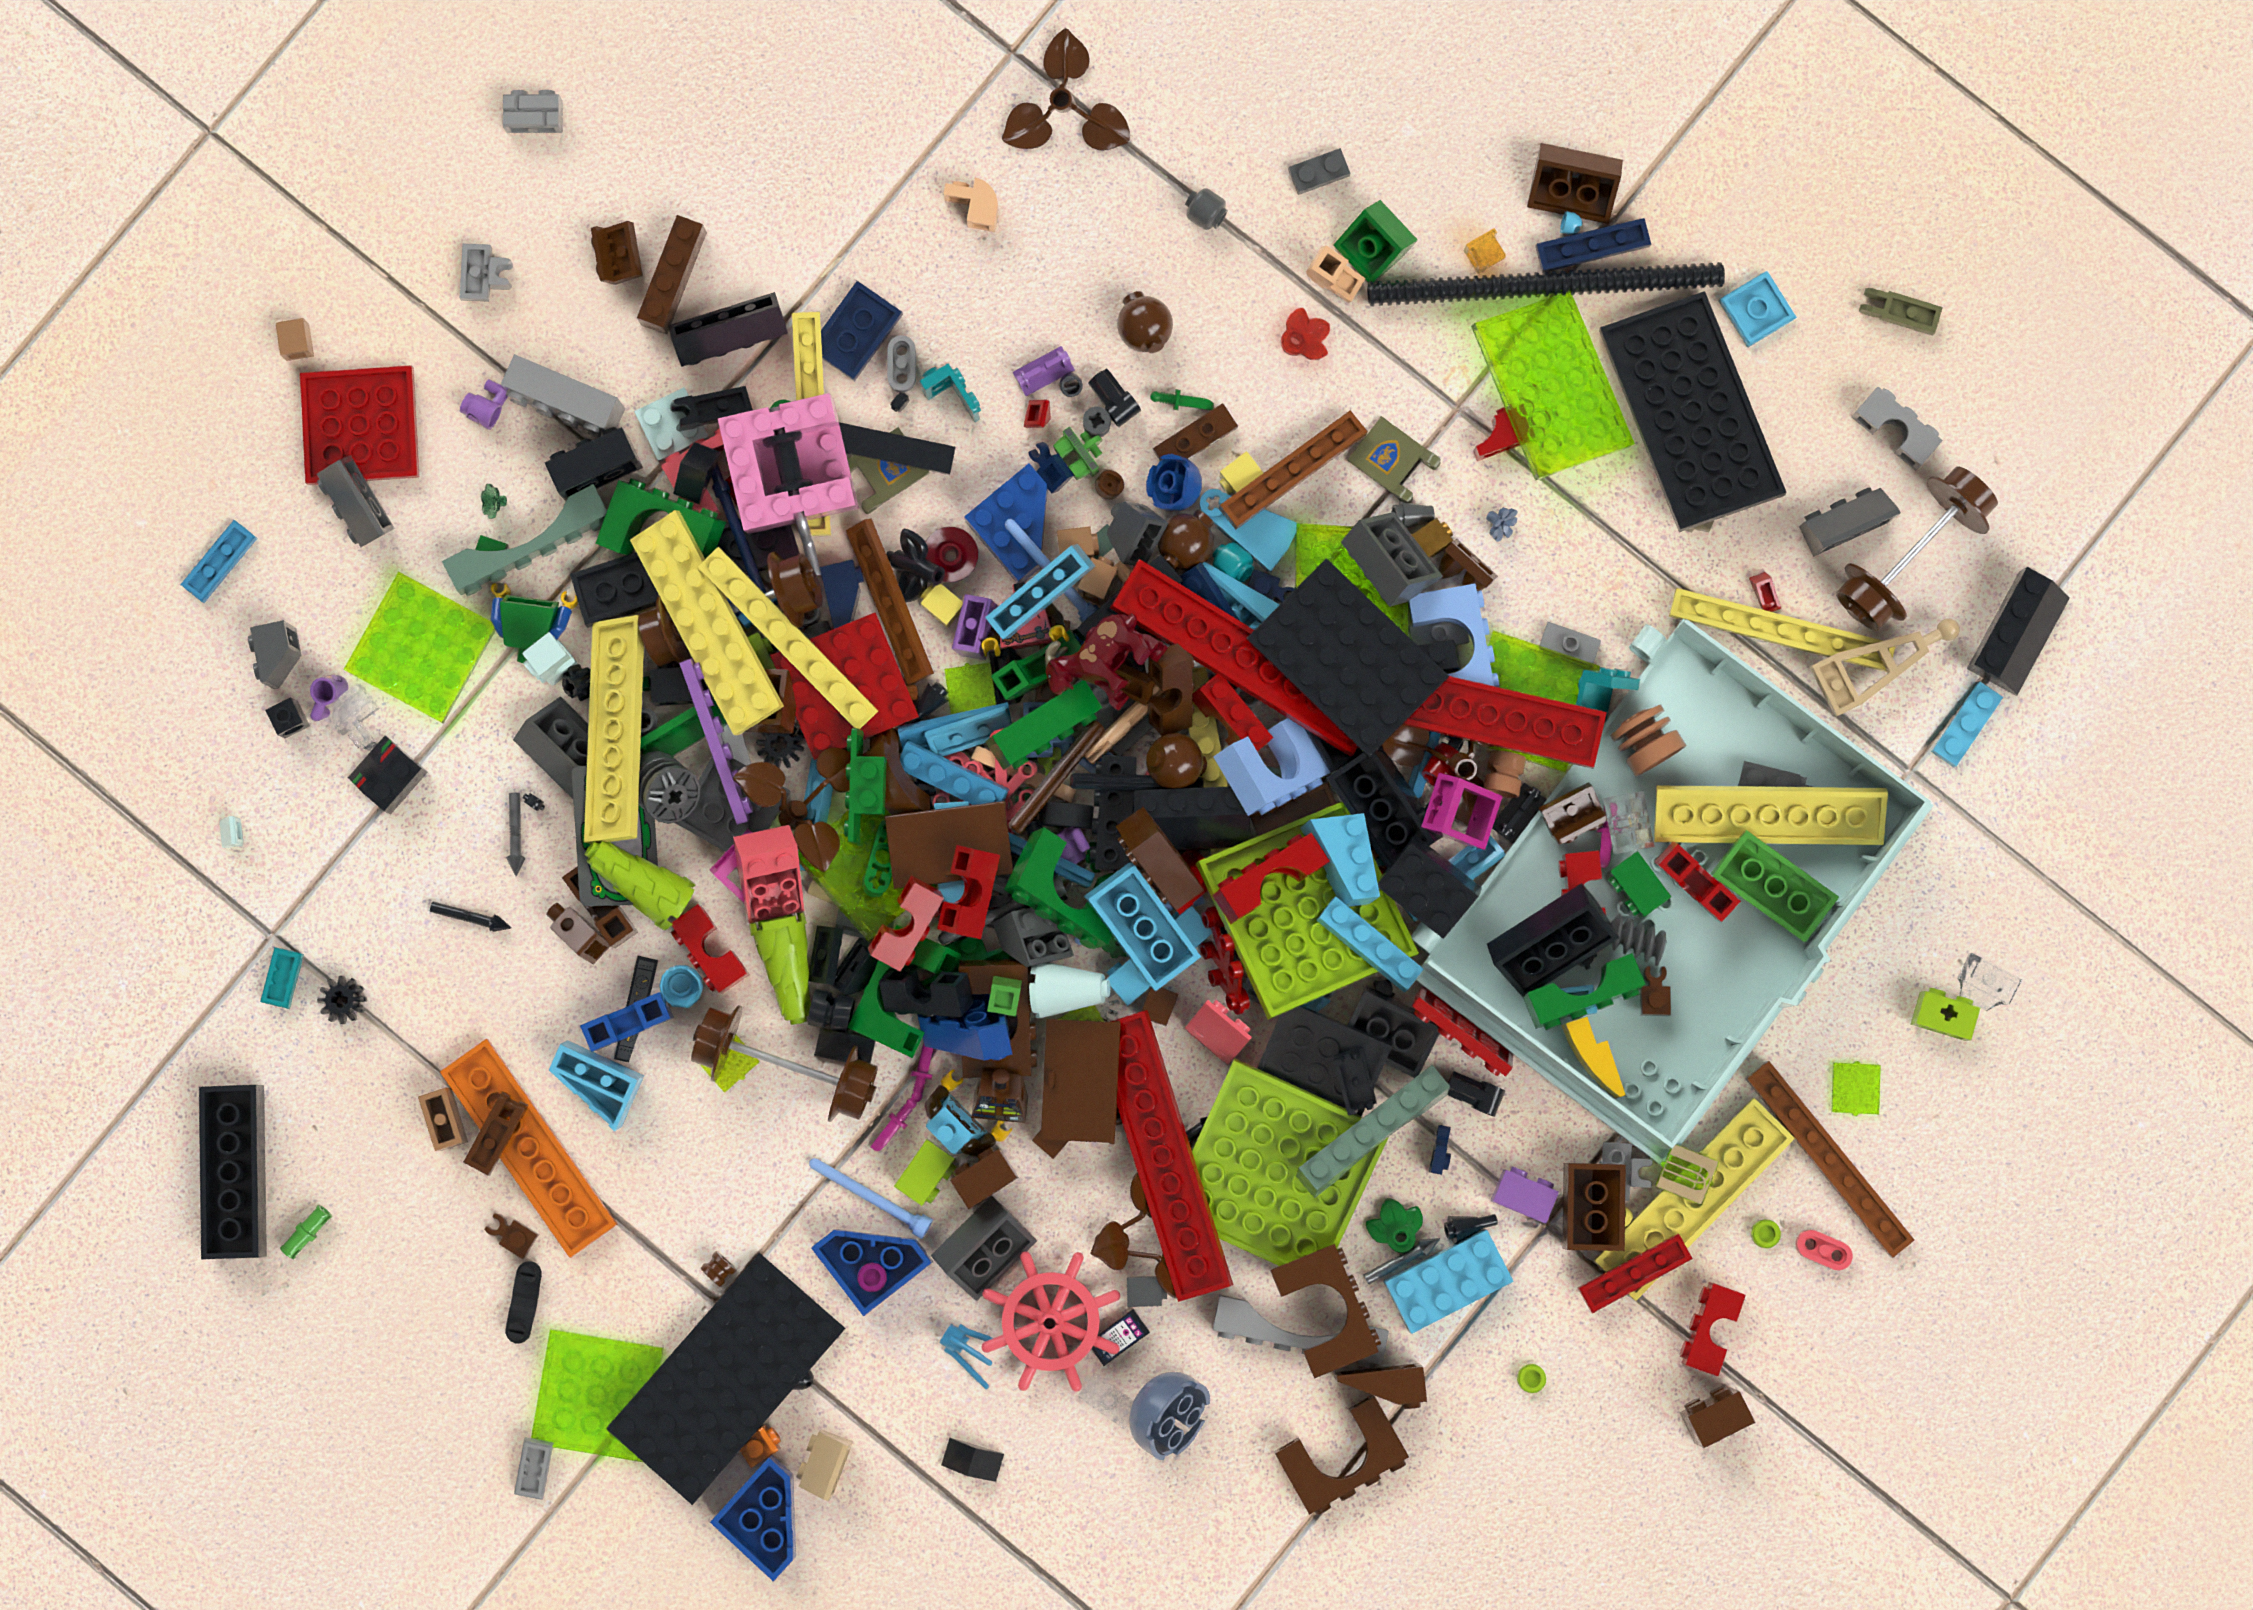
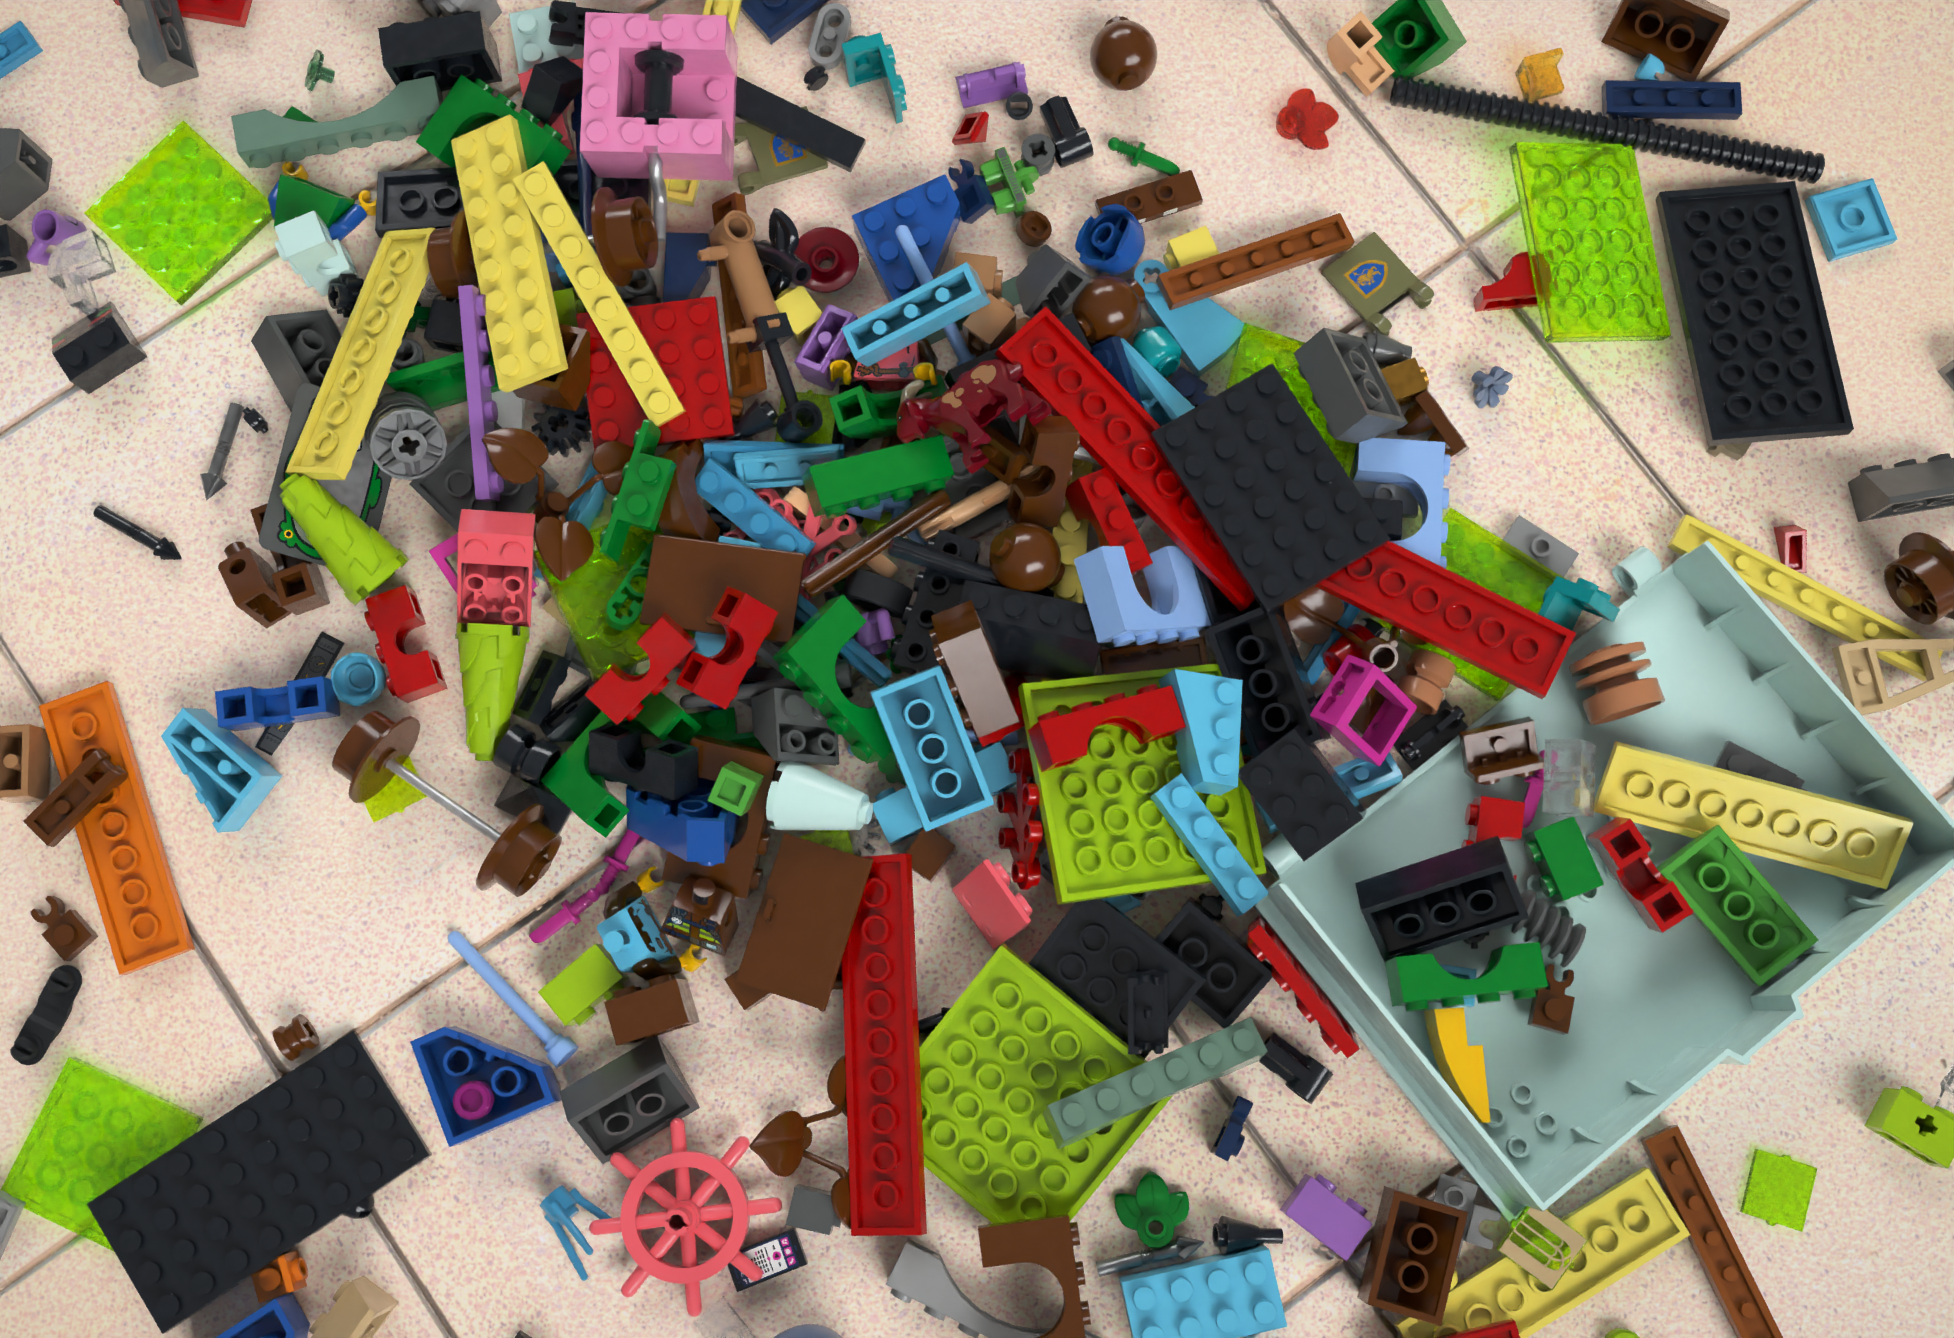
camera: 15 degrees right, 5 degrees down
(919, 623) = (765, 325): none -> piece

